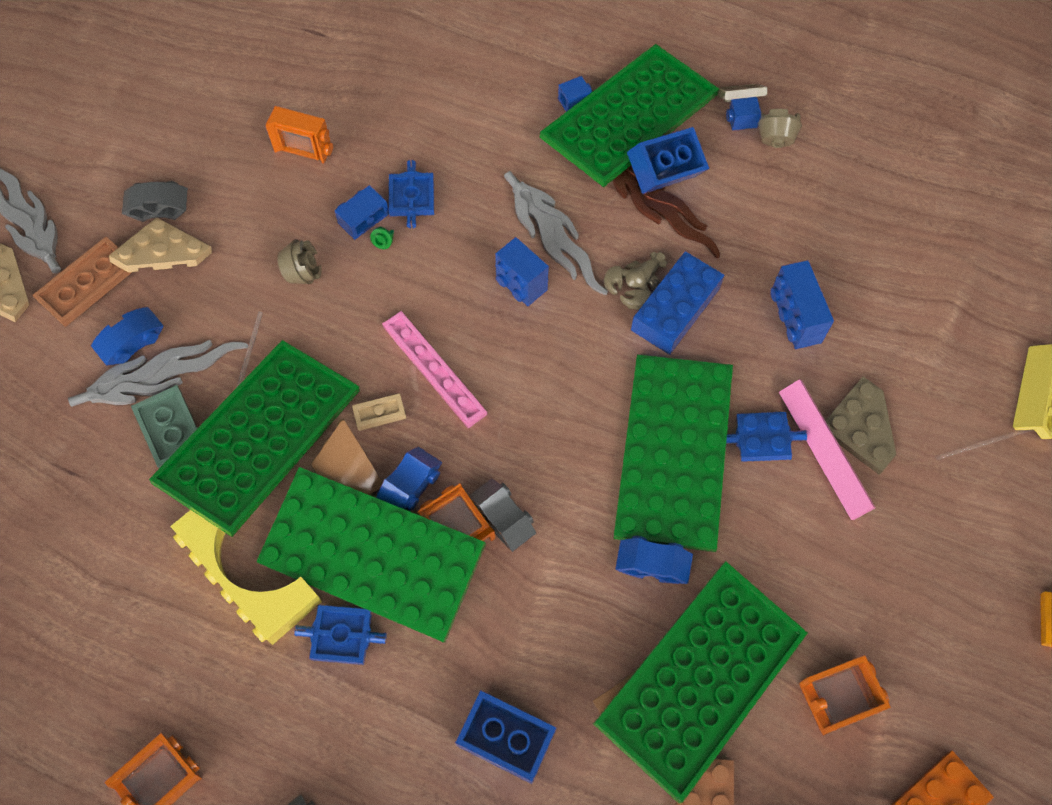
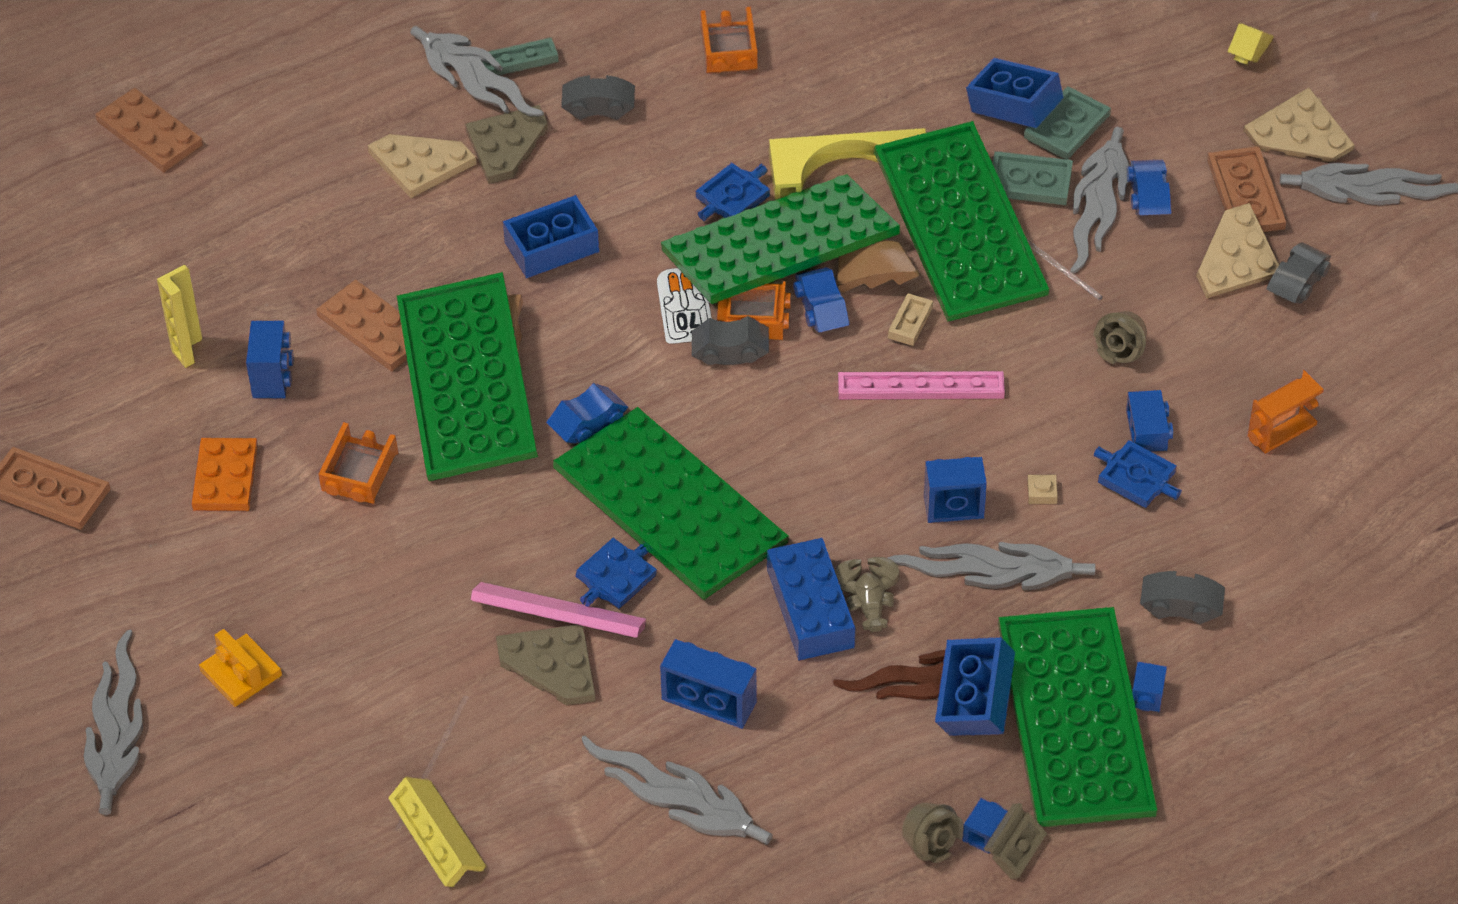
camera: 130 degrees right, 15 degrees down
(82, 484) = (1014, 92): none -> blue brick
(85, 440) = (1069, 124): none -> sand green plate
(382, 237) = (1101, 420): green plate -> none
(466, 240) = (1042, 489): none -> tan plate
(492, 581) = (681, 306): none -> sticker
(495, 112) = (1182, 596): none -> dark grey brick
(878, 284) = (691, 793): none -> light grey piece

